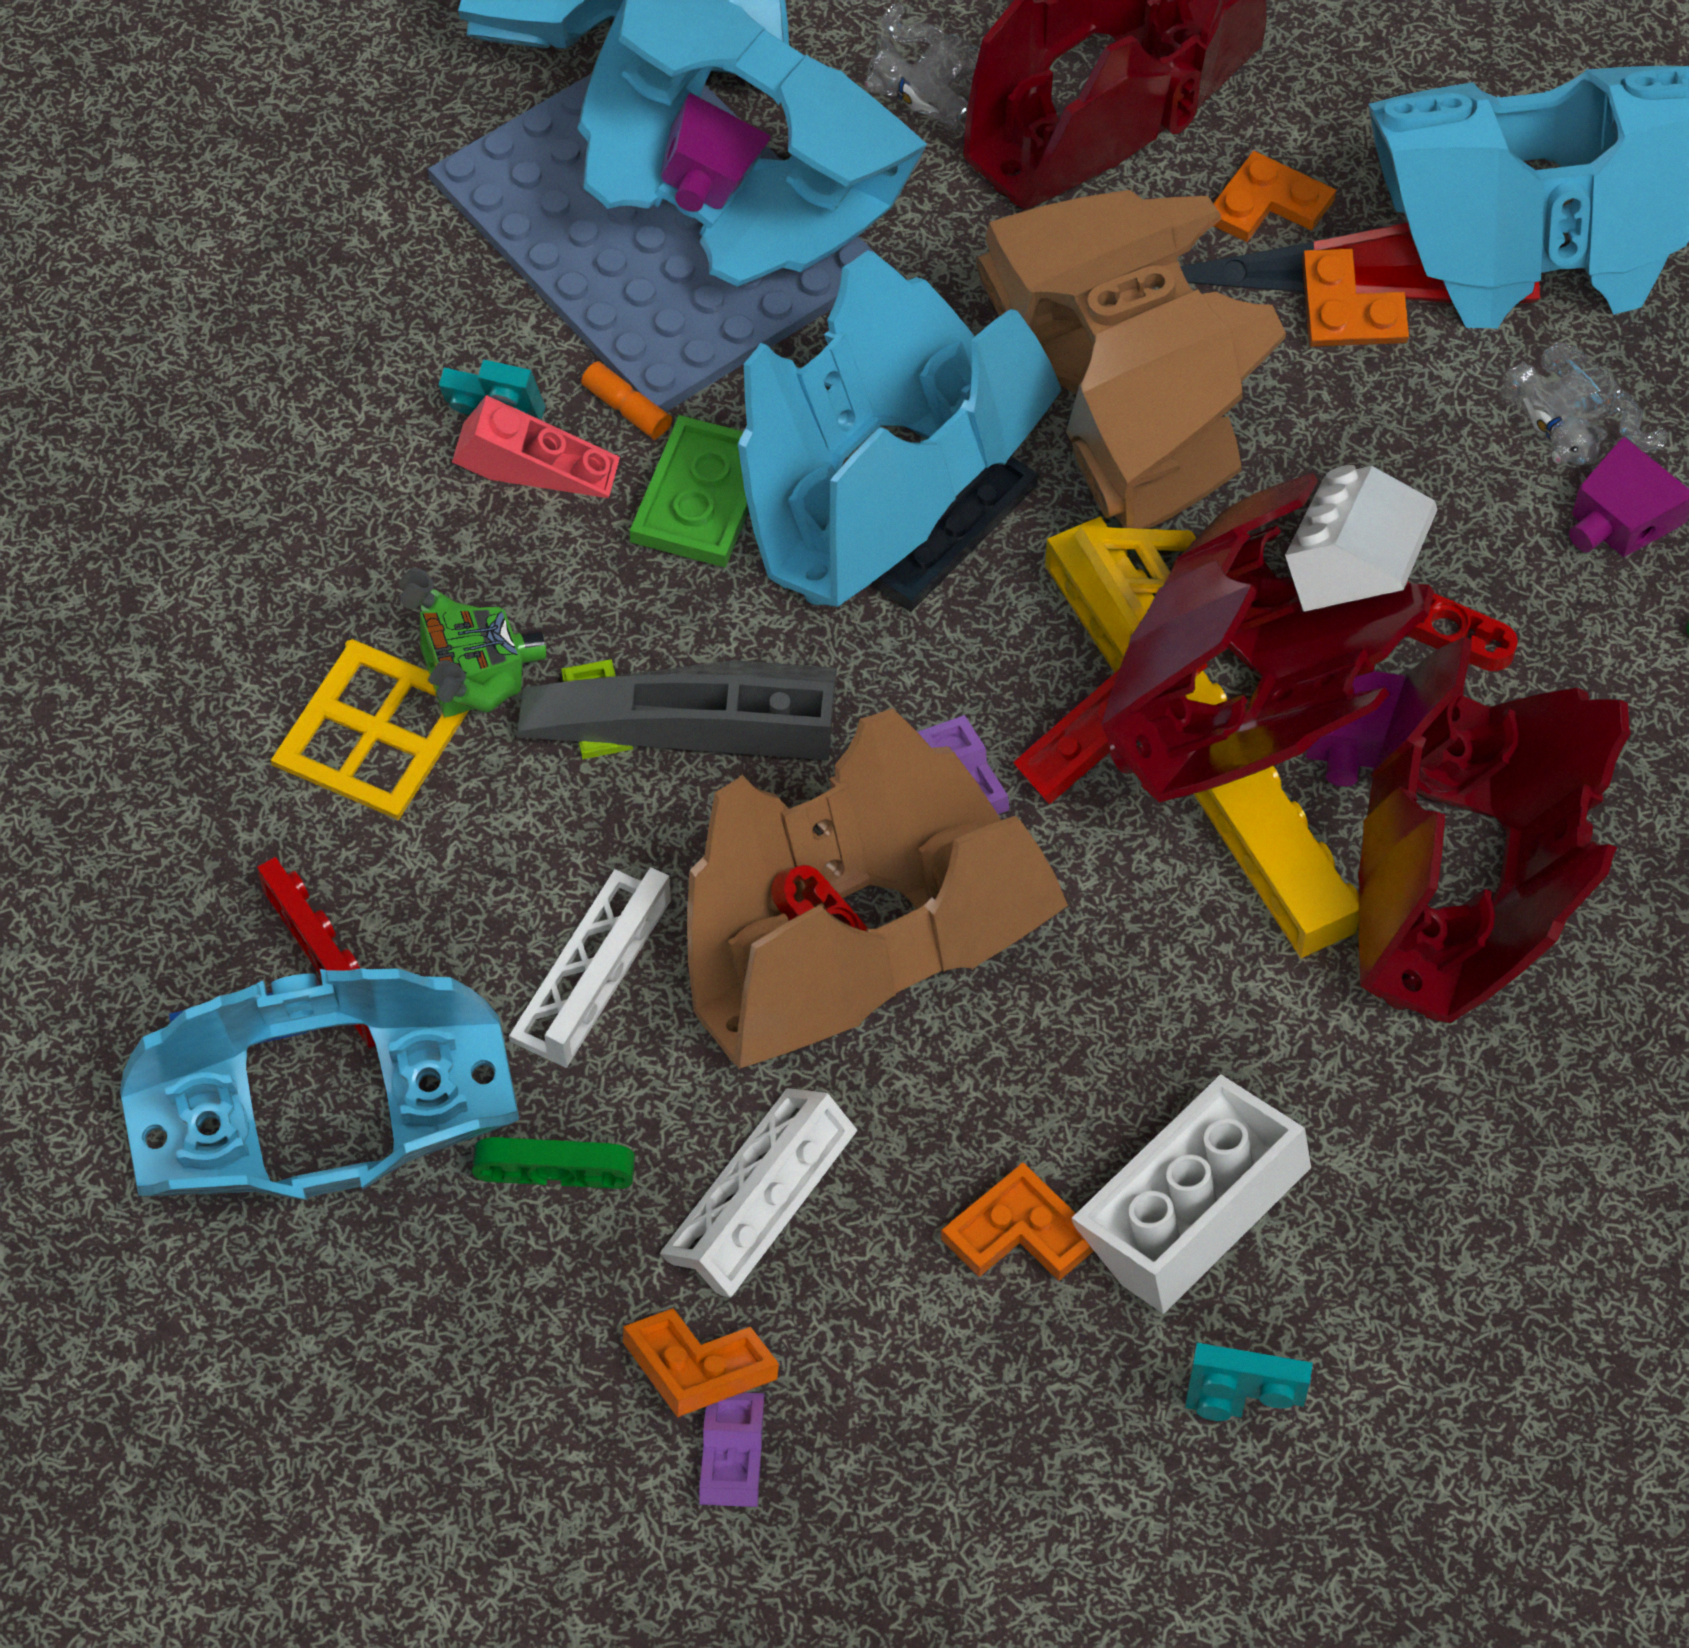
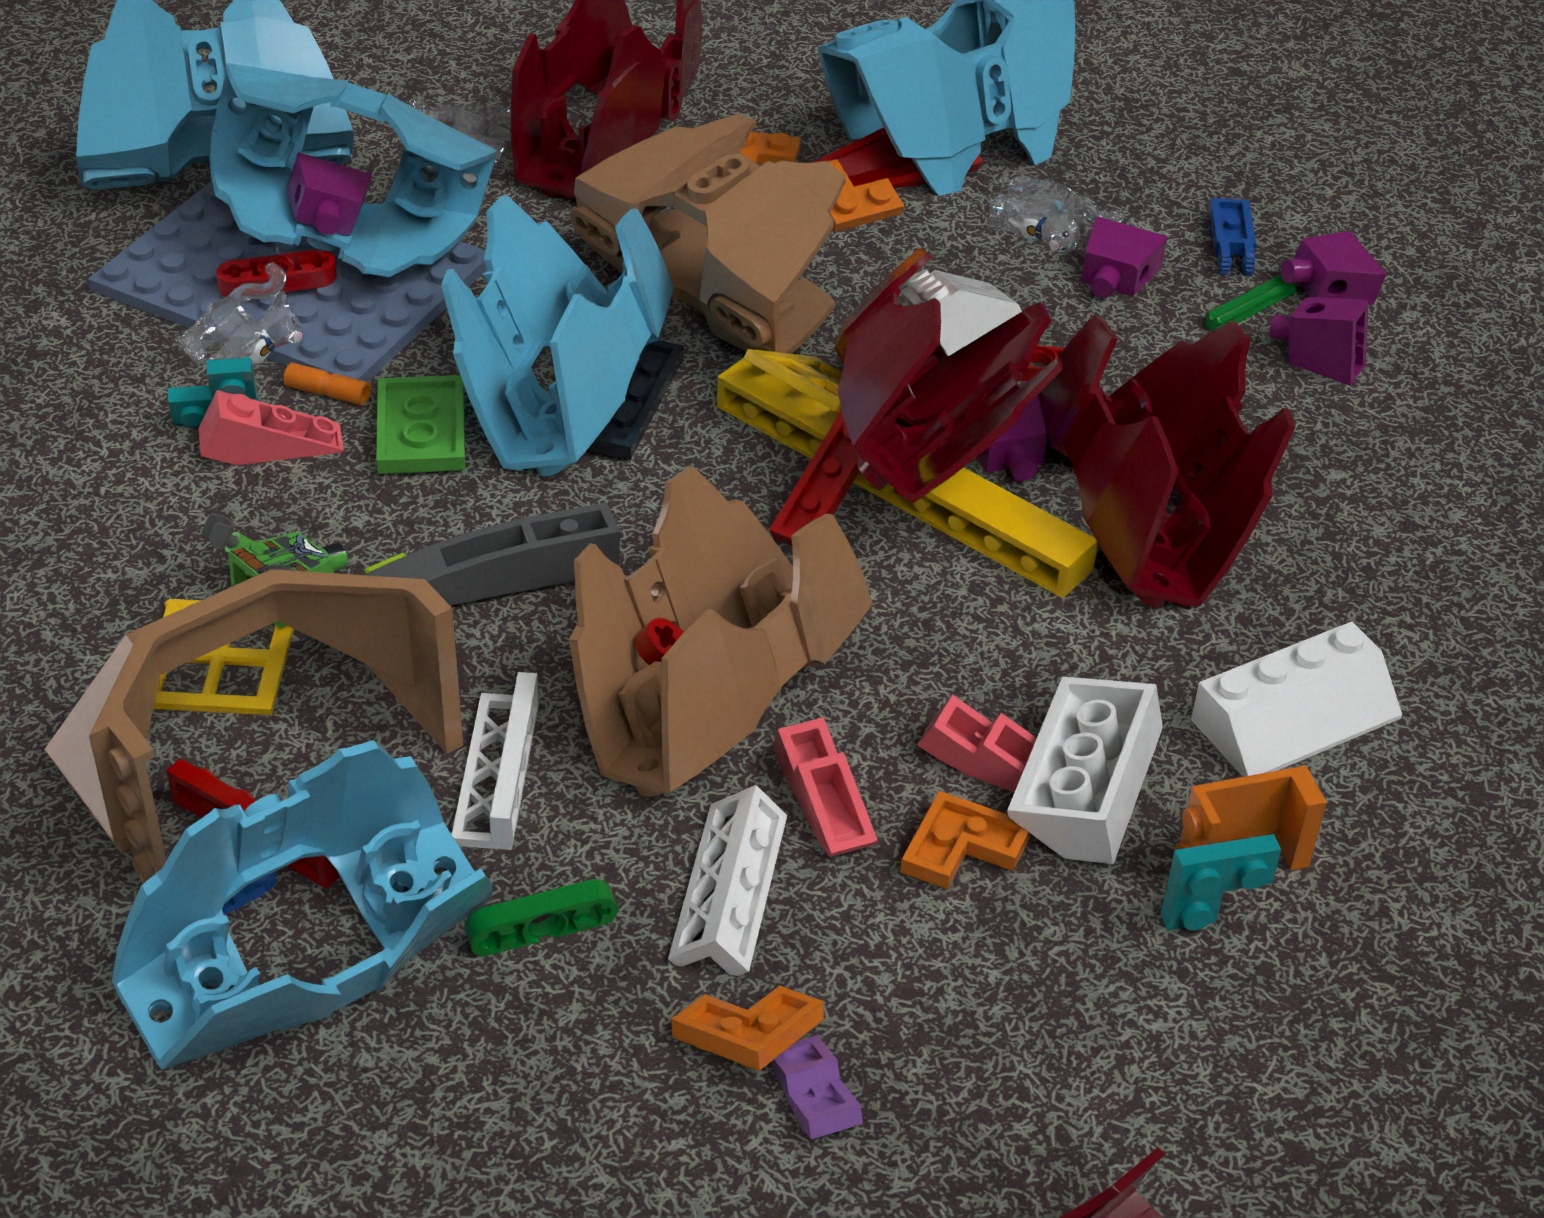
camera: 25 degrees left, 15 degrees down
(470, 750) = (386, 622): none -> medium nougat panel
(548, 303) = (236, 331): none -> clear animal
(640, 247) = (302, 271): none -> red beam
(907, 1115) = (824, 787): none -> coral slope
(1094, 1119) = (977, 746): none -> coral slope
(1324, 1314) = (1255, 806): none -> orange panel
(1478, 1191) = (1297, 701): none -> white slope

